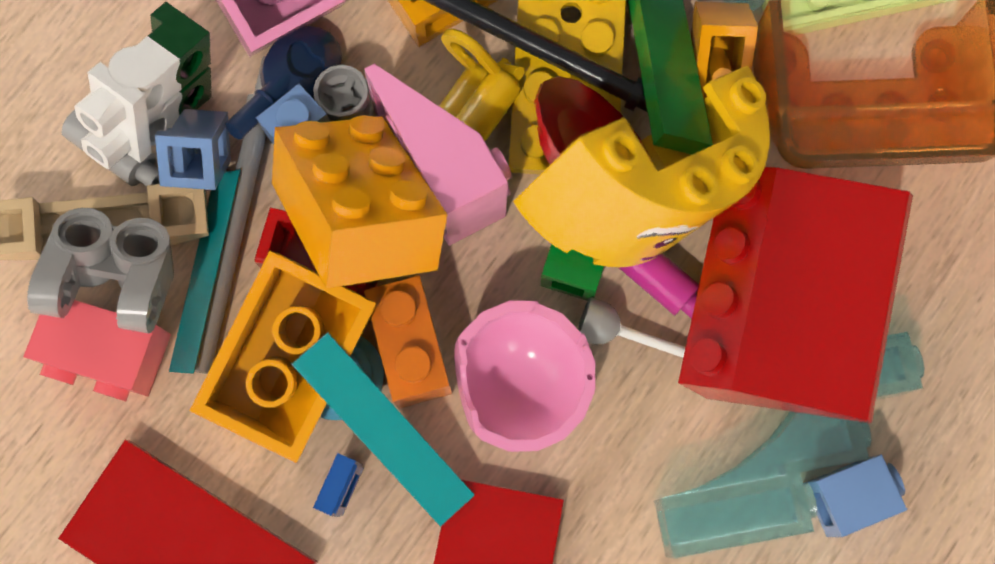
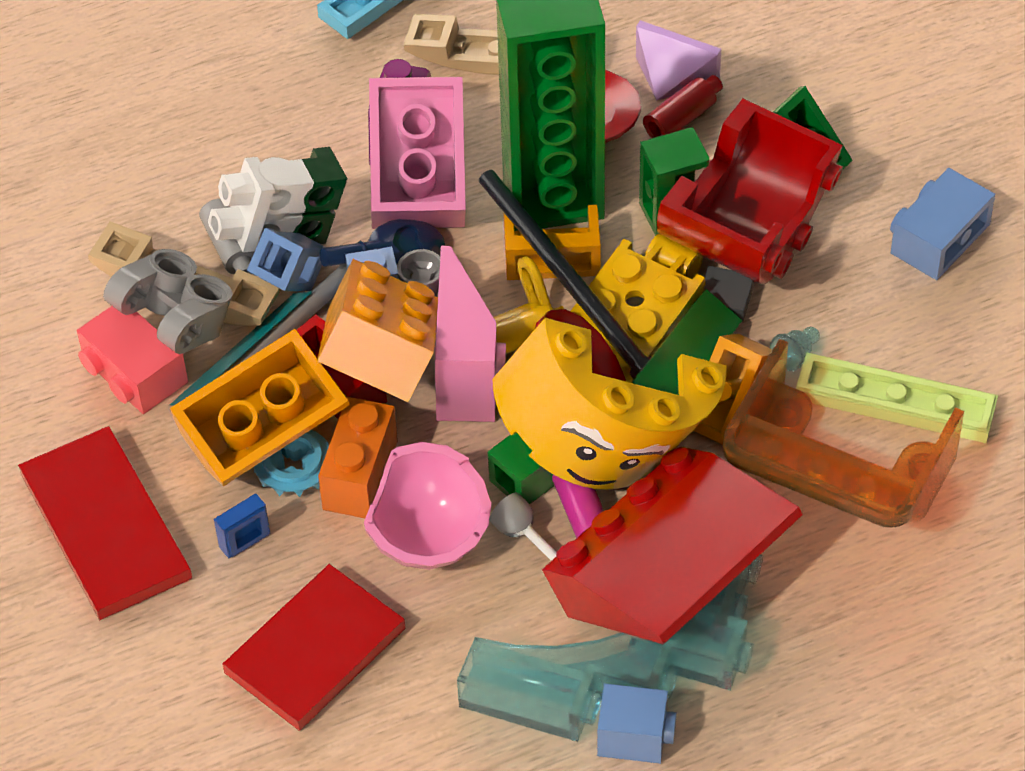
camera: 30 degrees right, 25 degrees down
(383, 429) = (300, 495): teal sticker -> none

